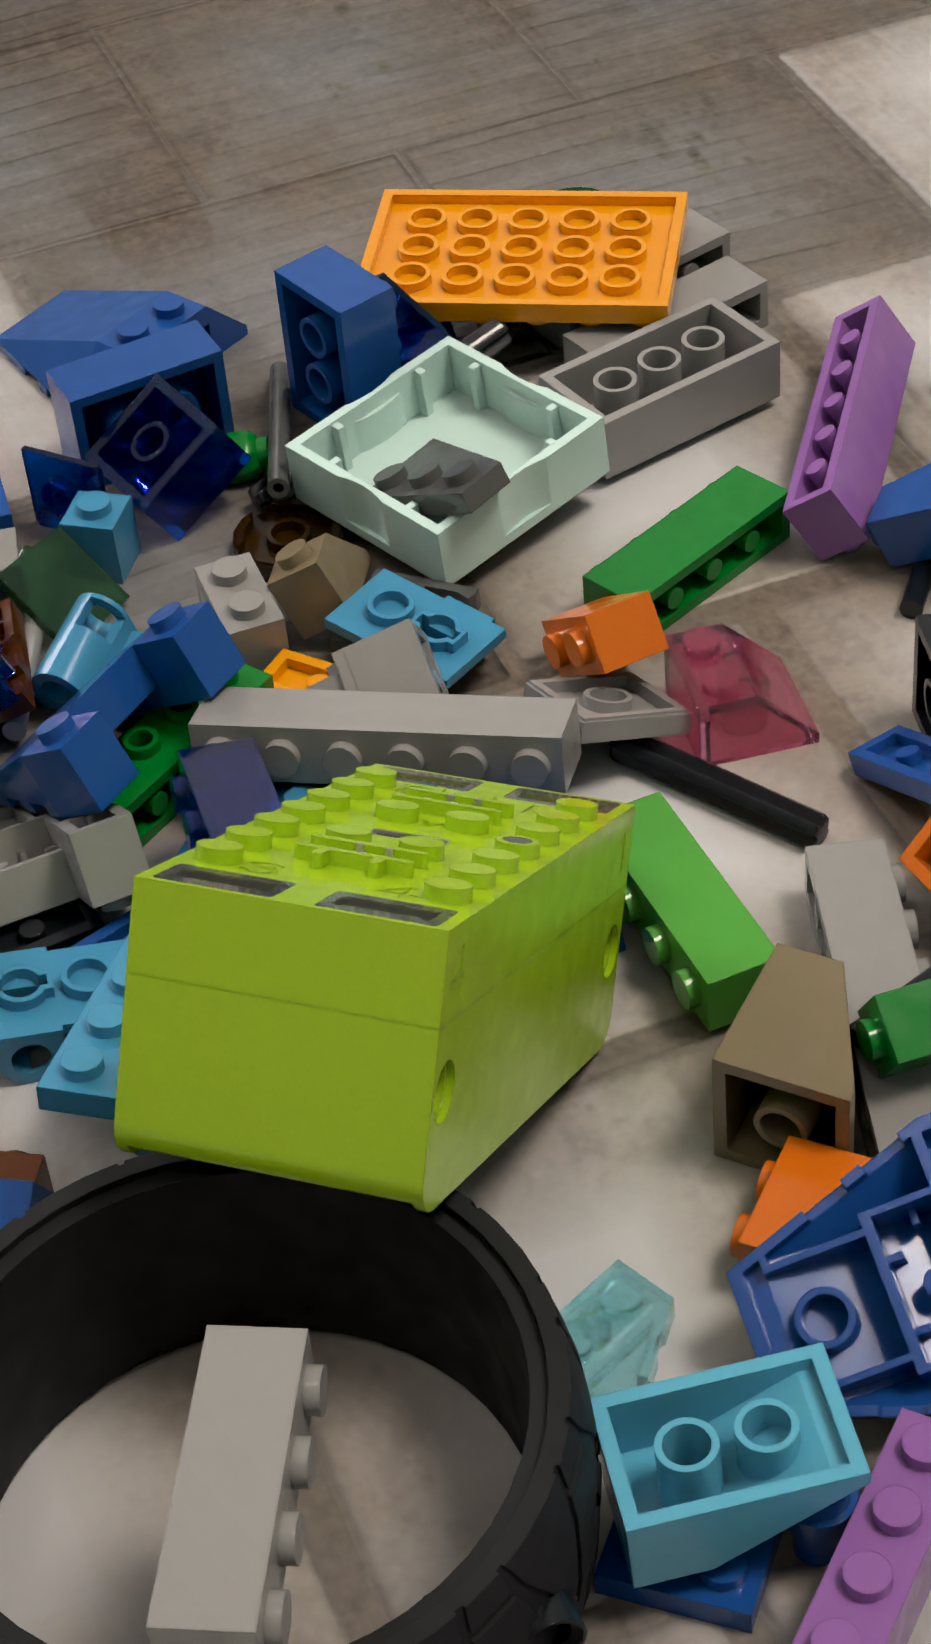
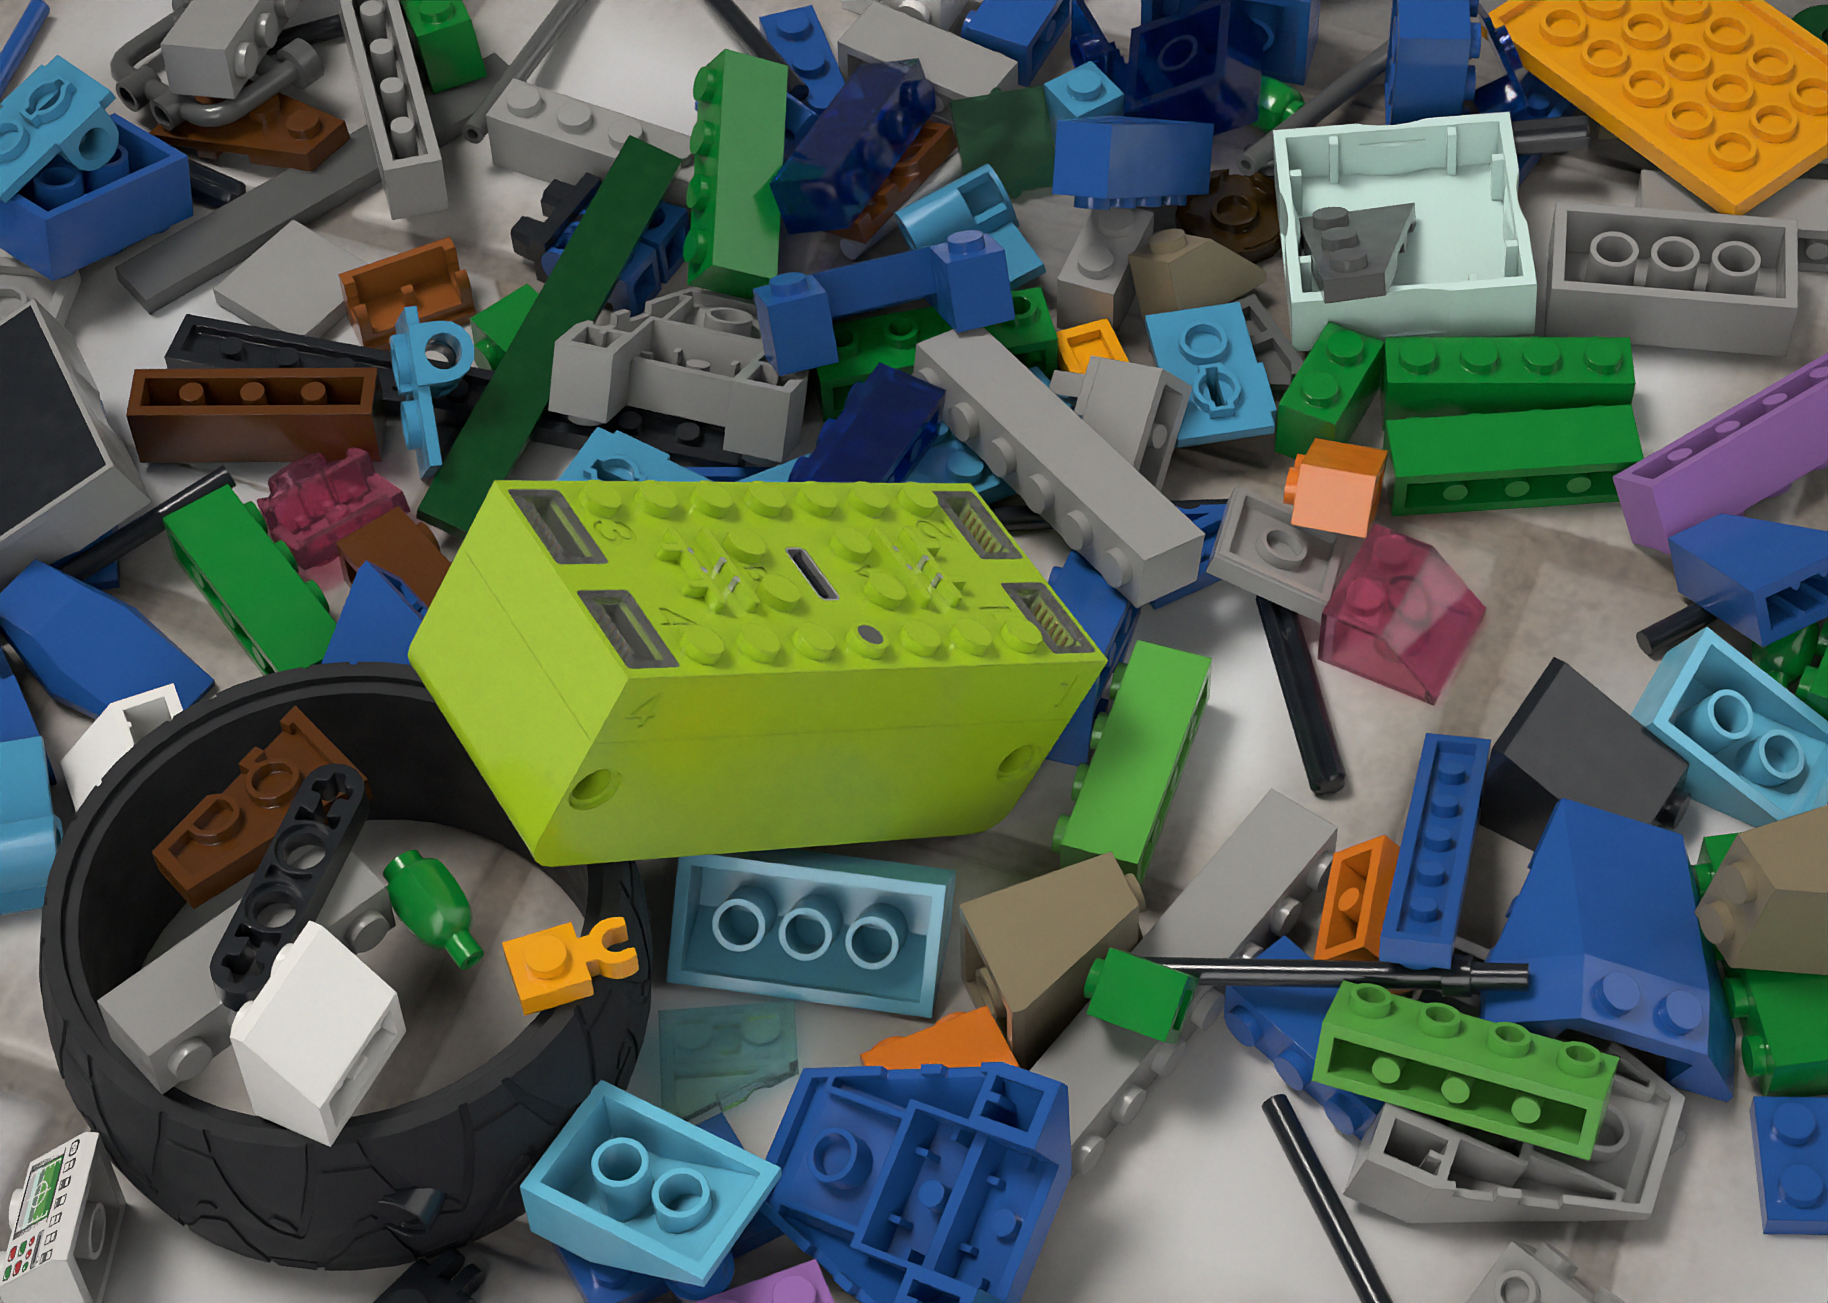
camera: 40 degrees right, 10 degrees up
(92, 1375) = (233, 830): none -> reddish brown wing
(193, 520) = (1131, 161): none -> blue wedge
(233, 1384) = (282, 883): none -> black beam
(352, 1330) = (432, 906): none -> green plant
(389, 1500) = (315, 1036): none -> white slope
(510, 1298) = (558, 966): none -> light orange plate
(512, 591) = (1329, 390): none -> green brick
(600, 1177) = (813, 928): none -> medium azure slope
(616, 508) = (1502, 374): none -> green brick

